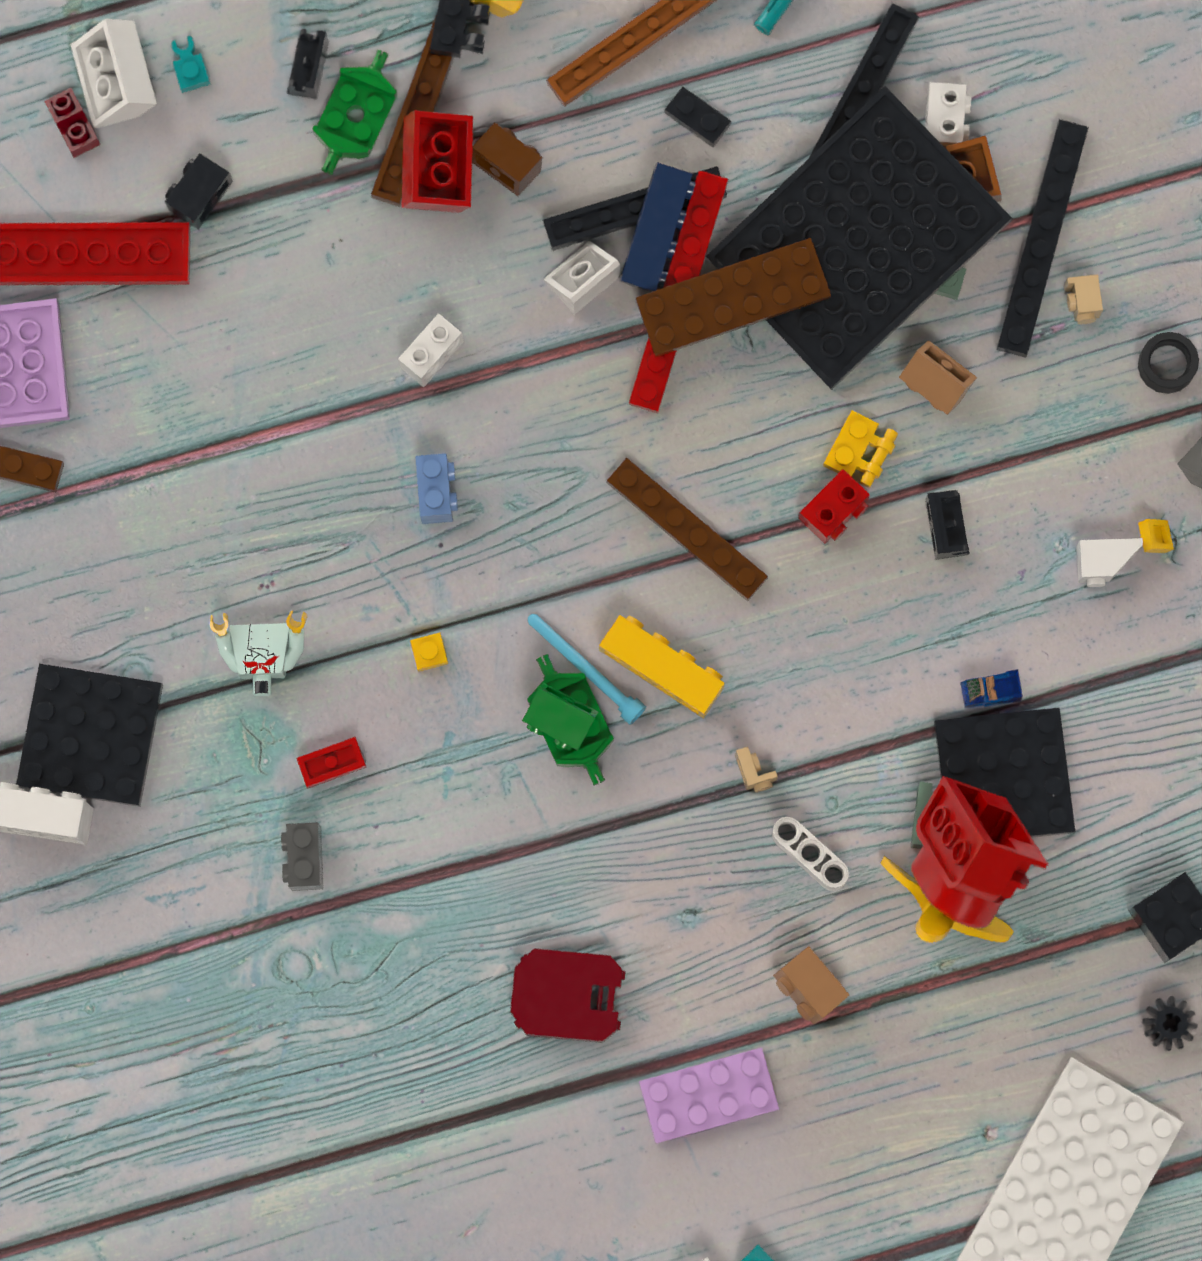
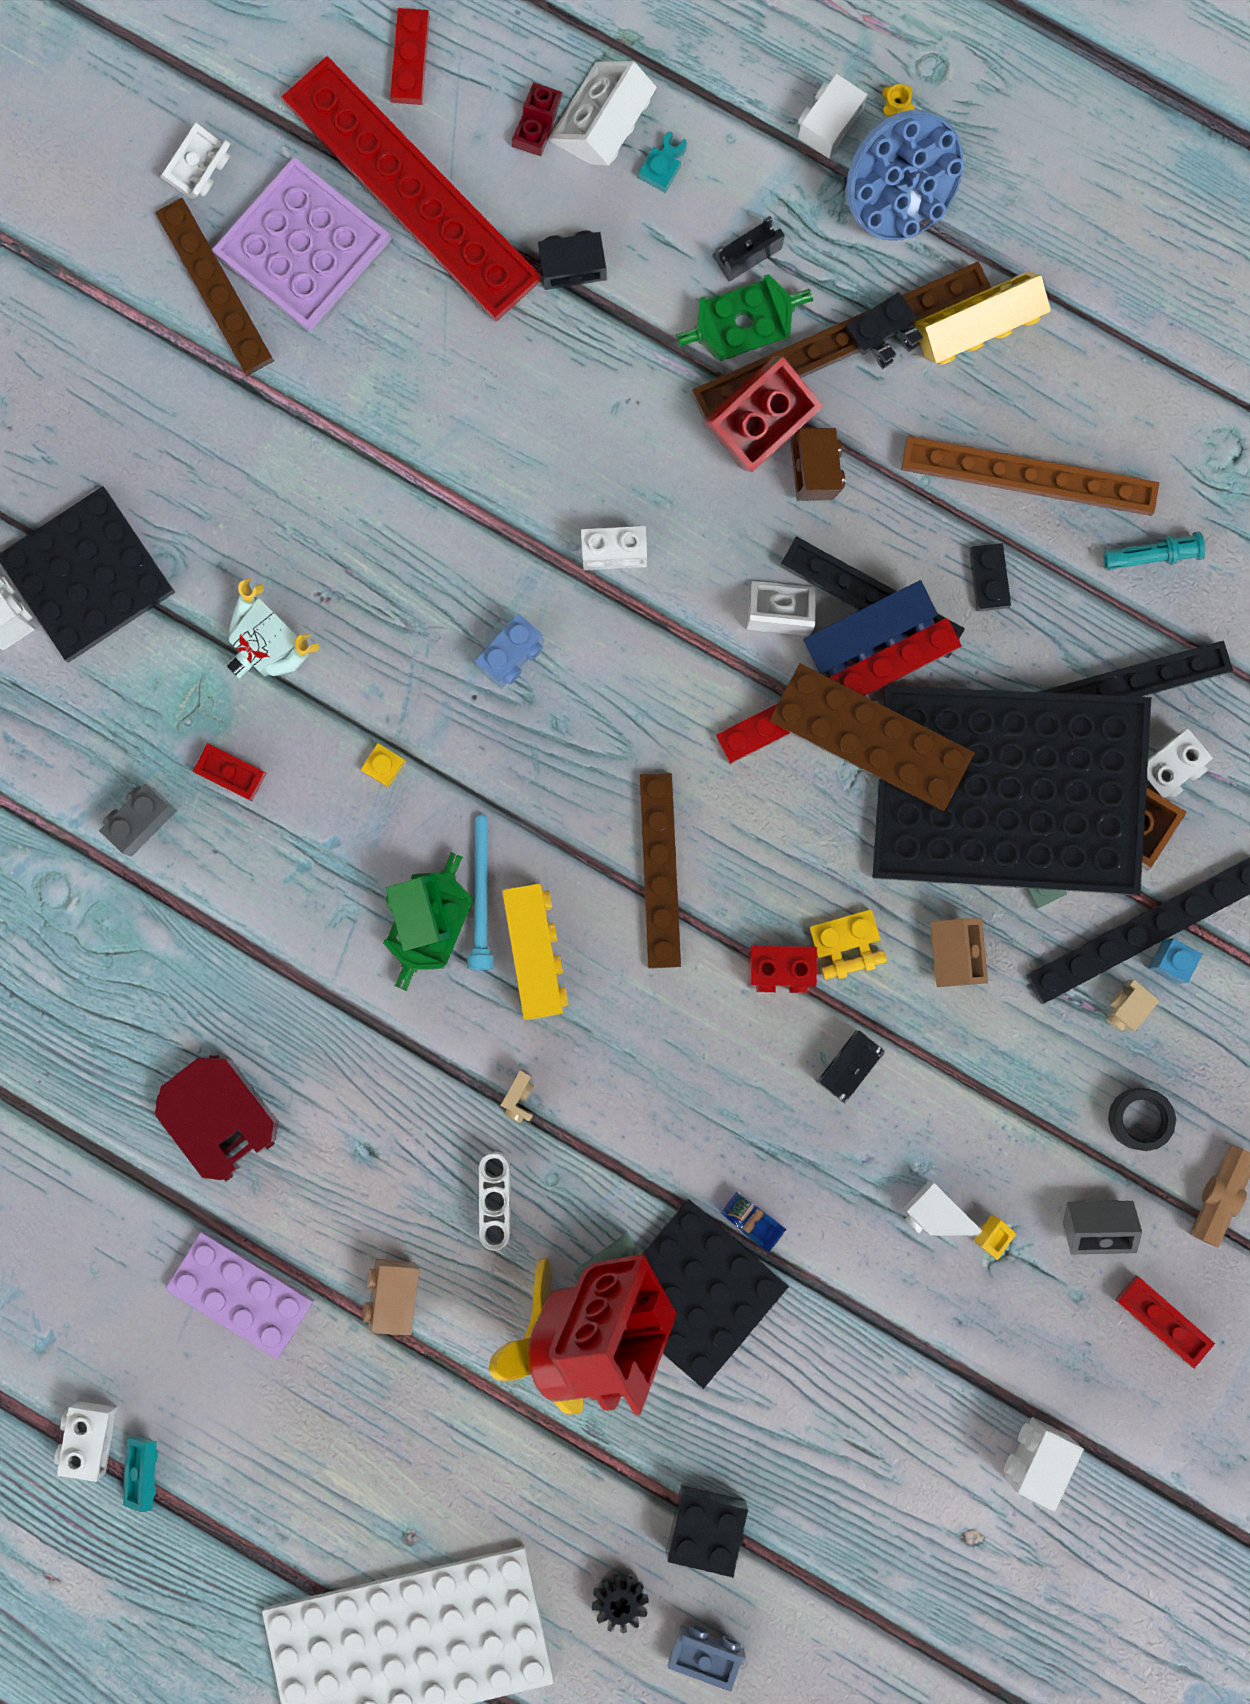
camera: 40 degrees right, 5 degrees up
(1081, 239) = (1175, 961): none -> dark azure brick

